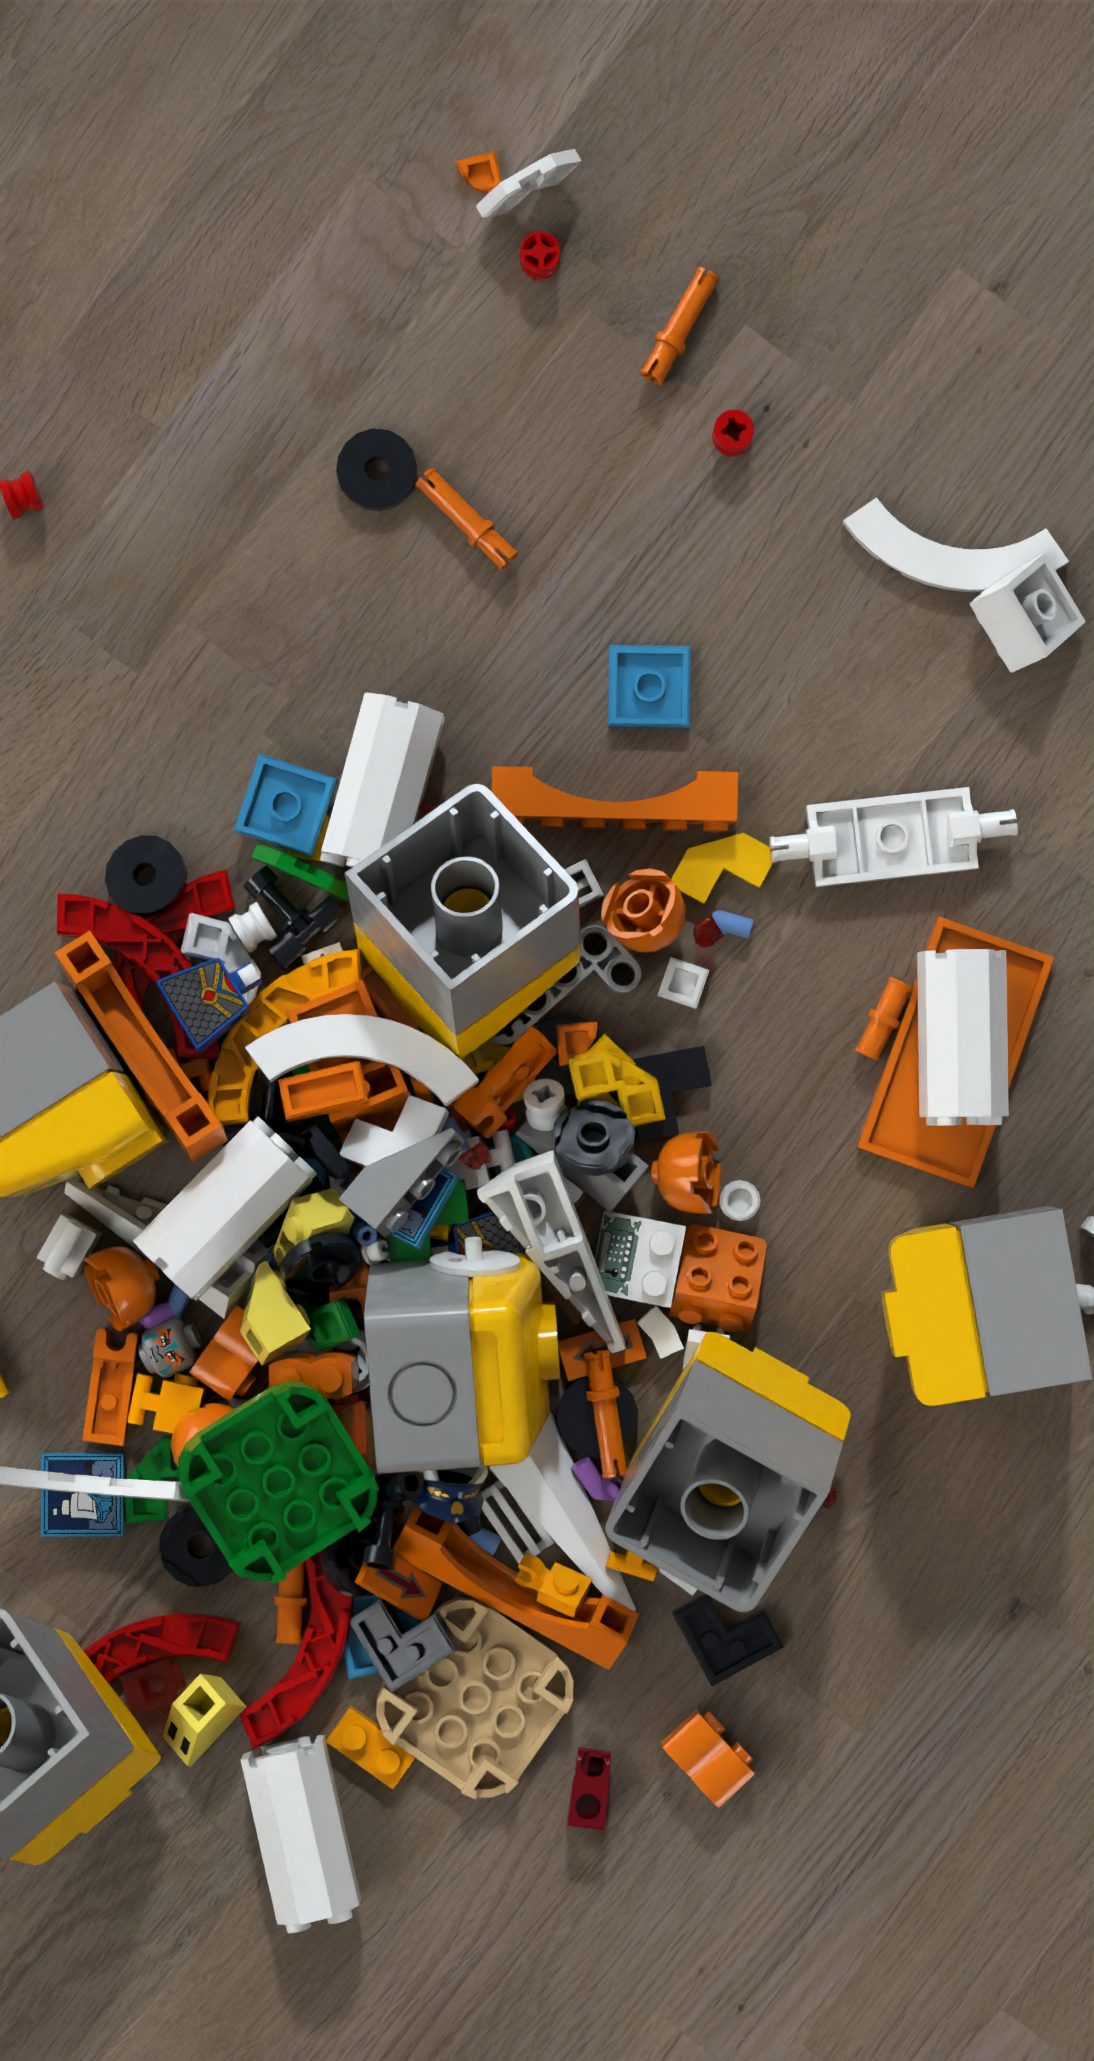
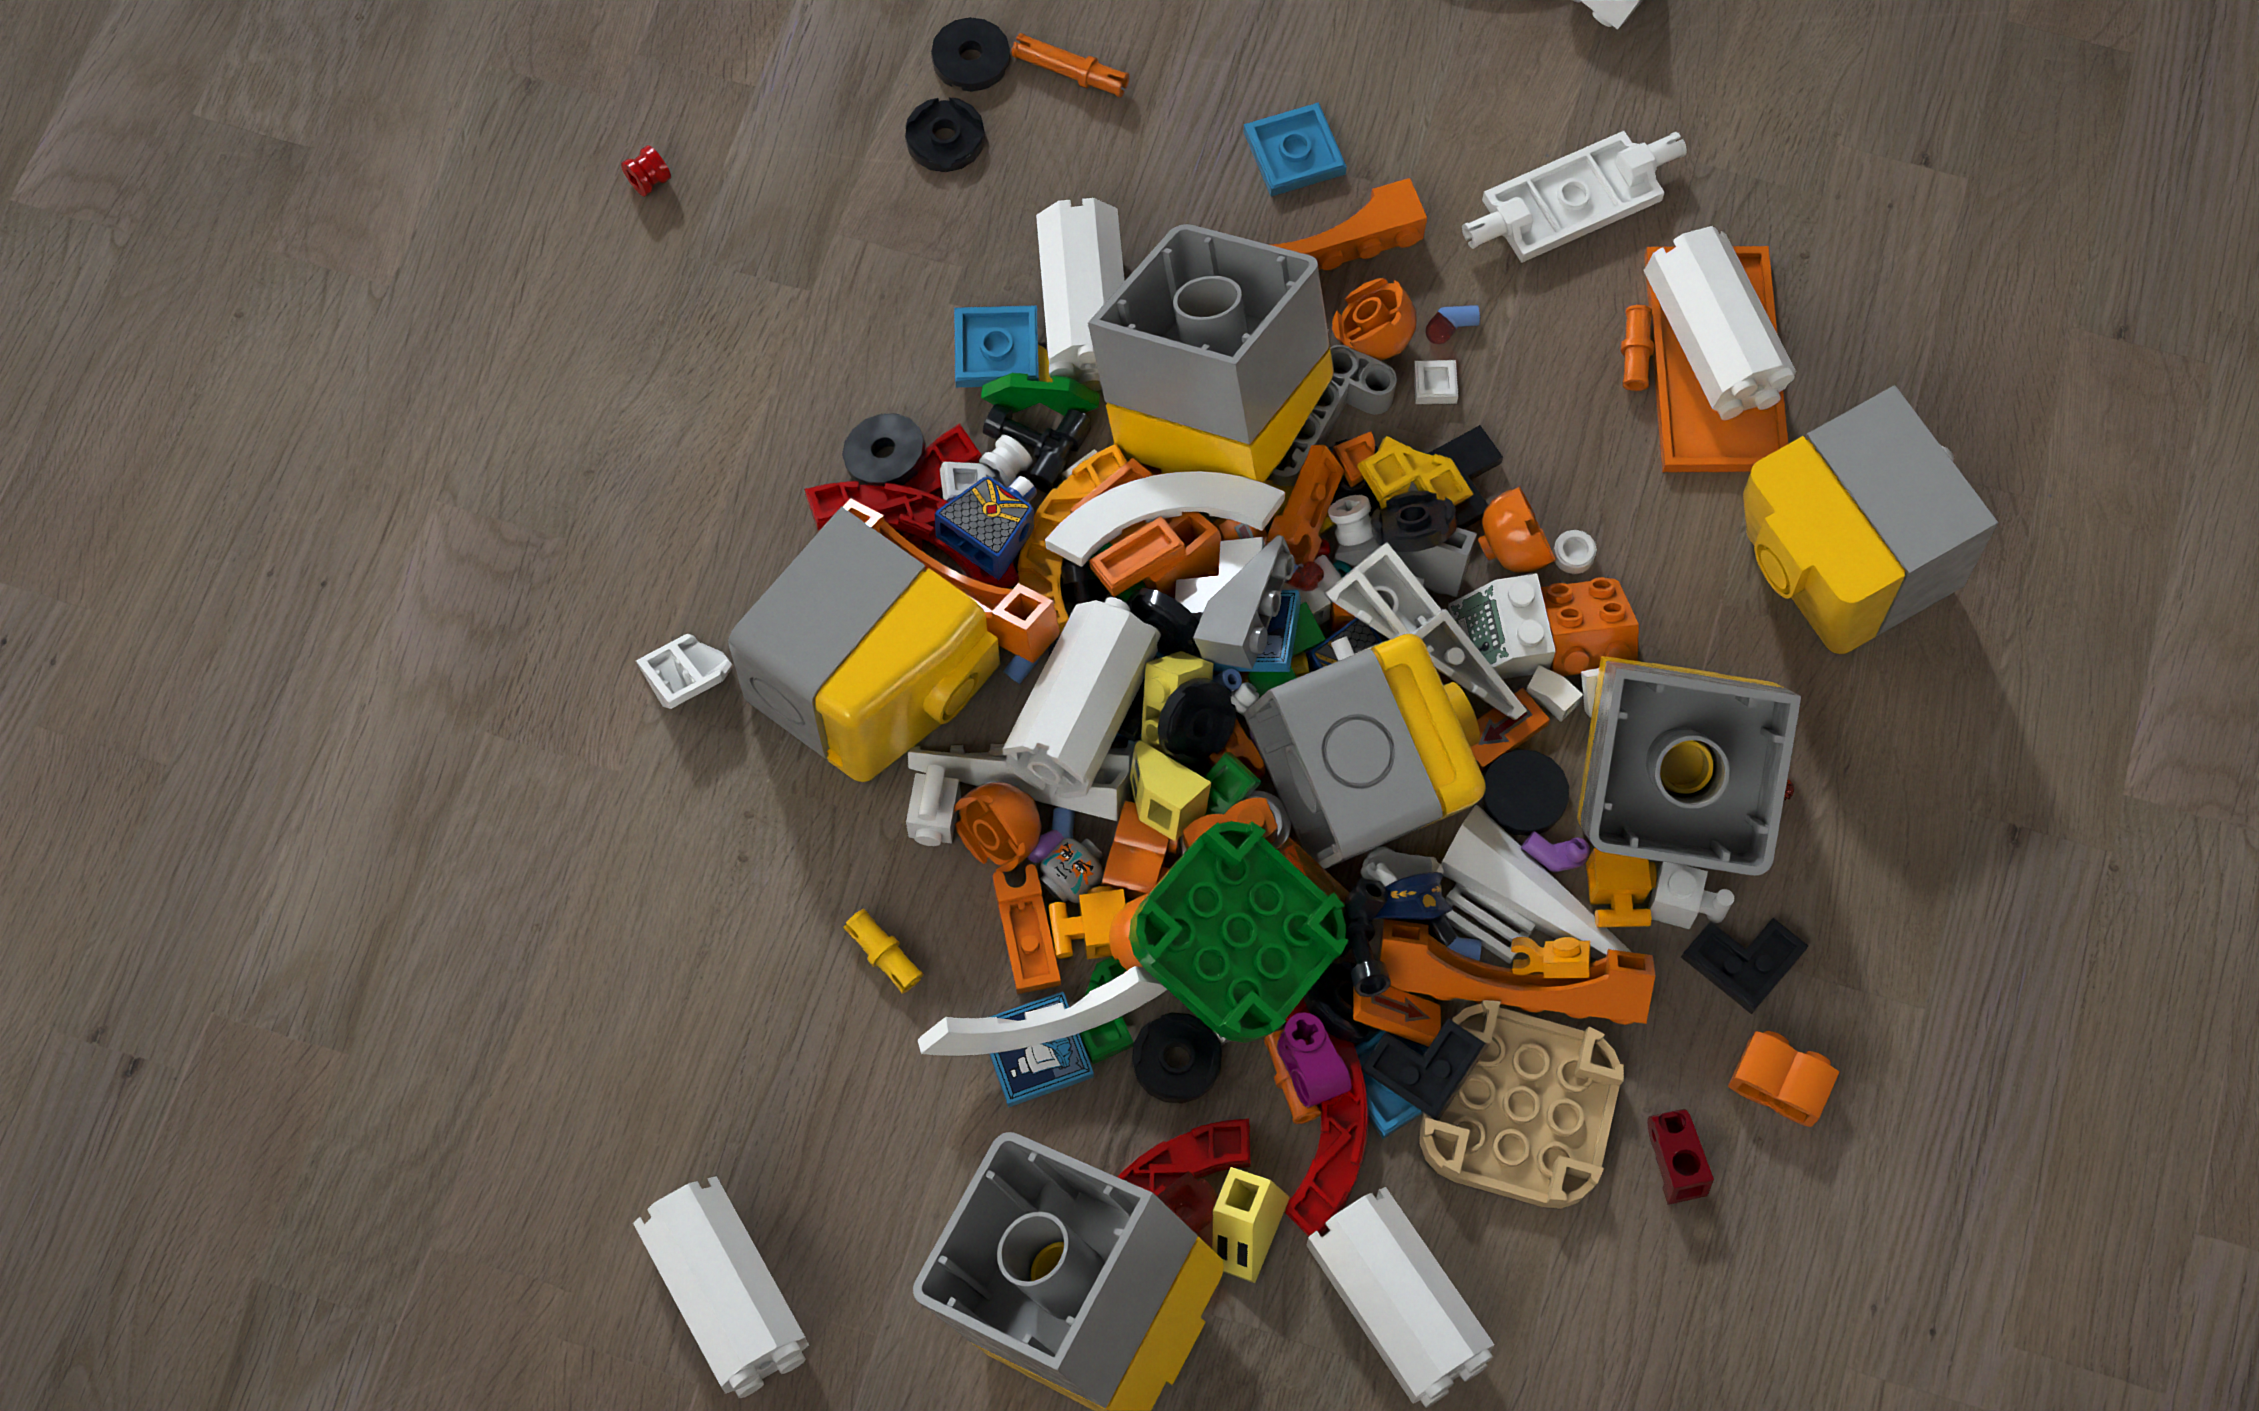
camera: 20 degrees left, 20 degrees down
(304, 1614) = (1316, 1067): none -> magenta piece
(324, 574) = (949, 153): none -> black tile
(366, 1745) = (1437, 1198): light orange plate -> none
(605, 1410) = (1525, 763): orange pin -> none
(736, 854) = (1436, 258): yellow tile -> none

